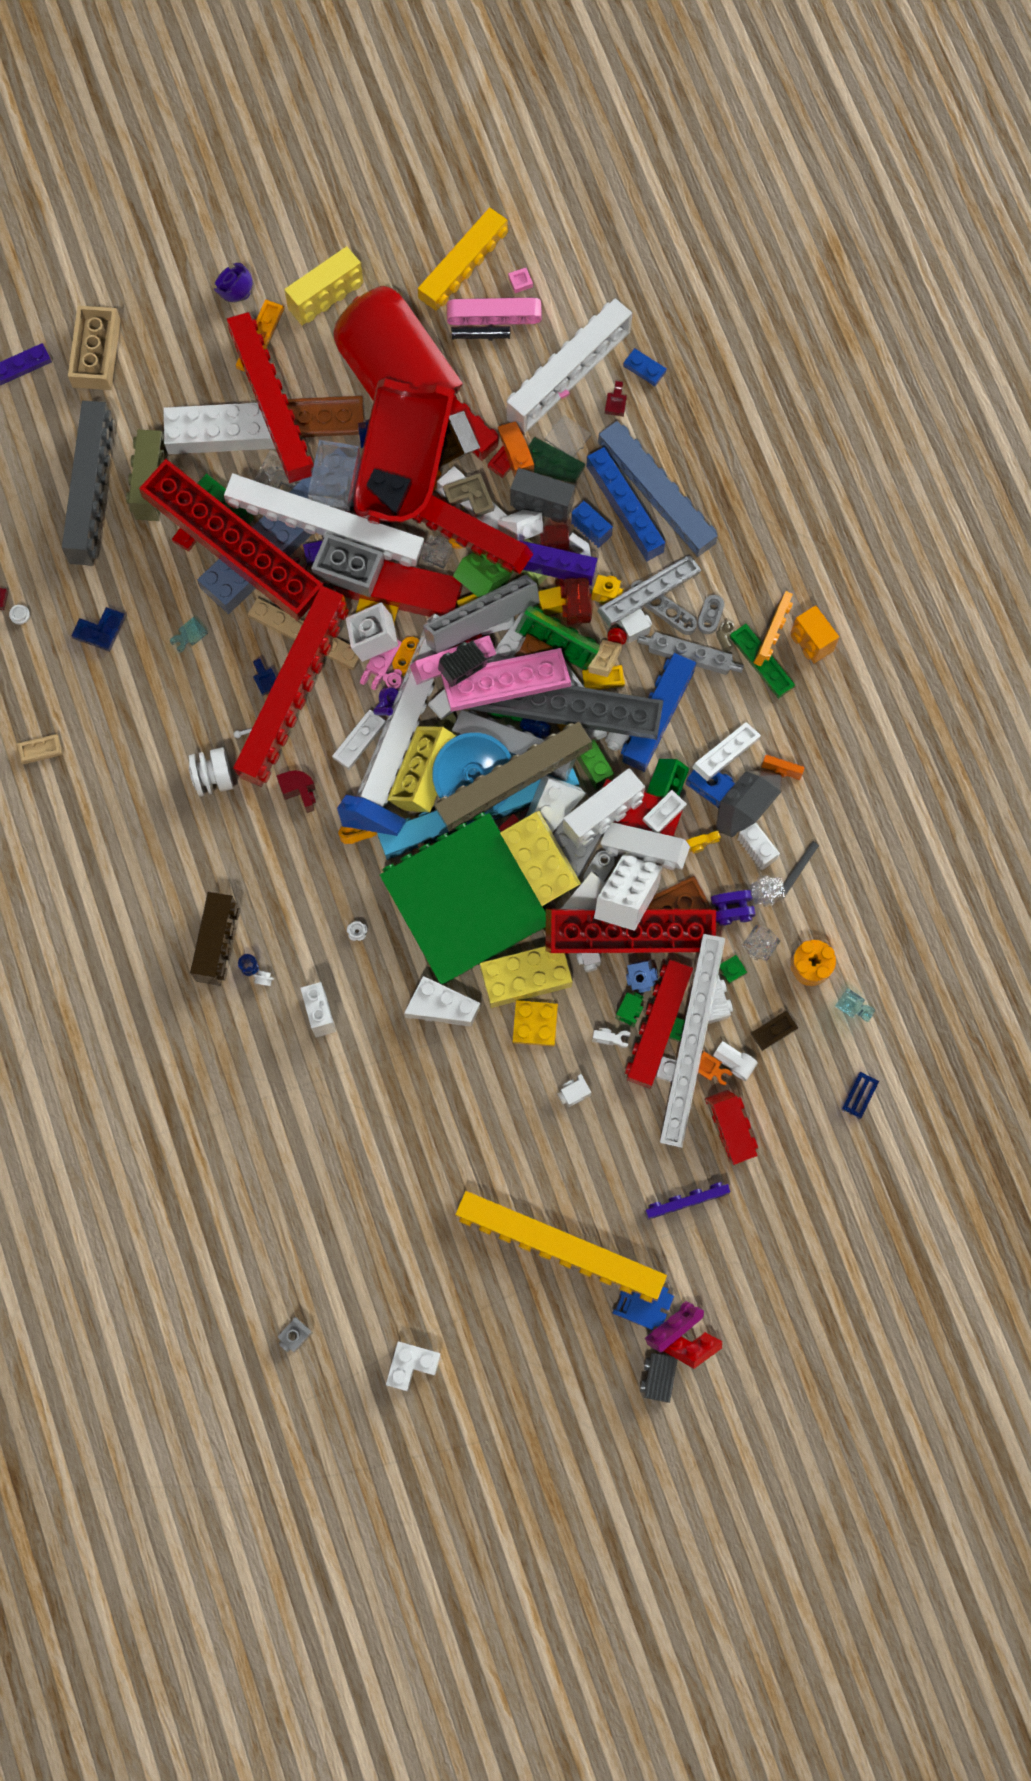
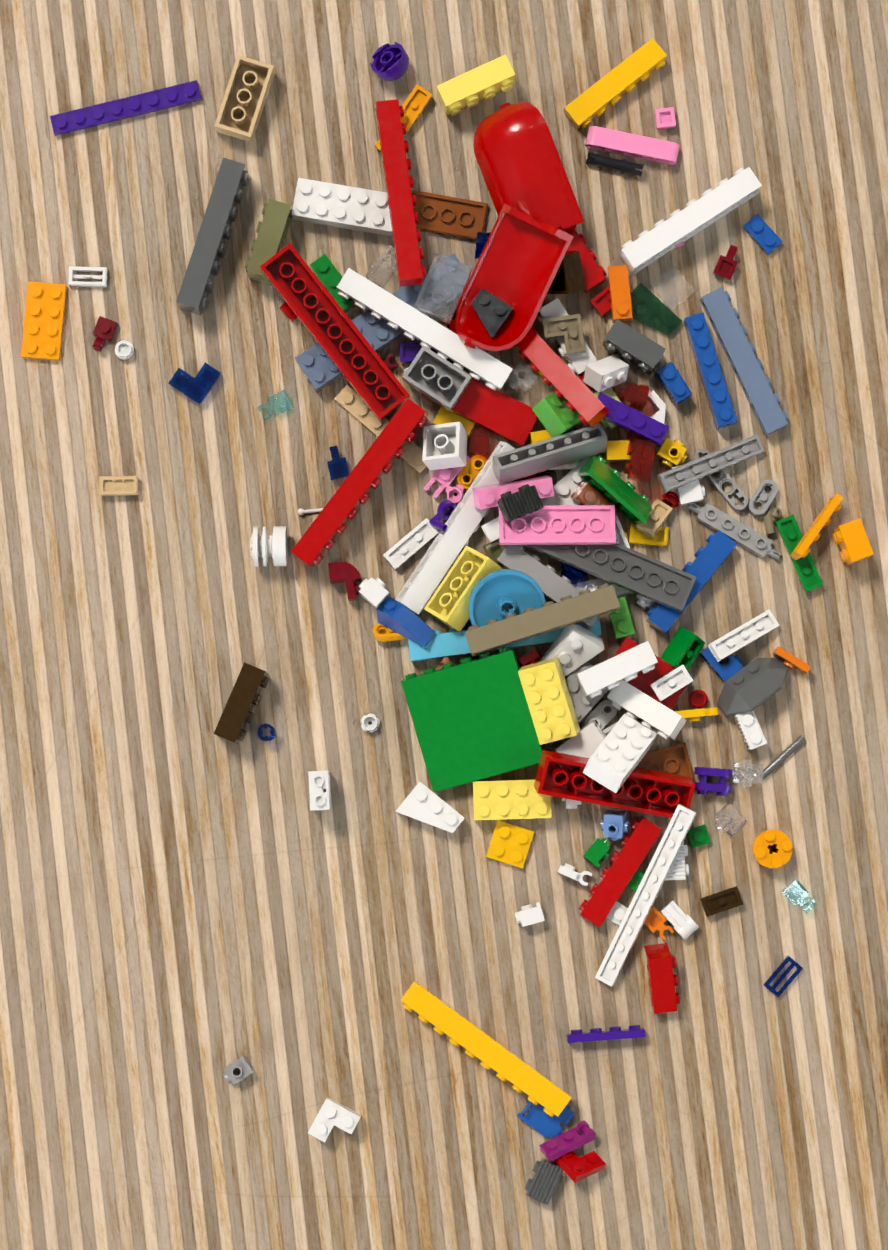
camera: 15 degrees right, 10 degrees up
(263, 978) = (277, 747): white plate -> none
(329, 792) = (373, 591): none -> white brick
(407, 623) = (479, 442): none -> clear red brick
(695, 828) = (698, 699): none -> red plate

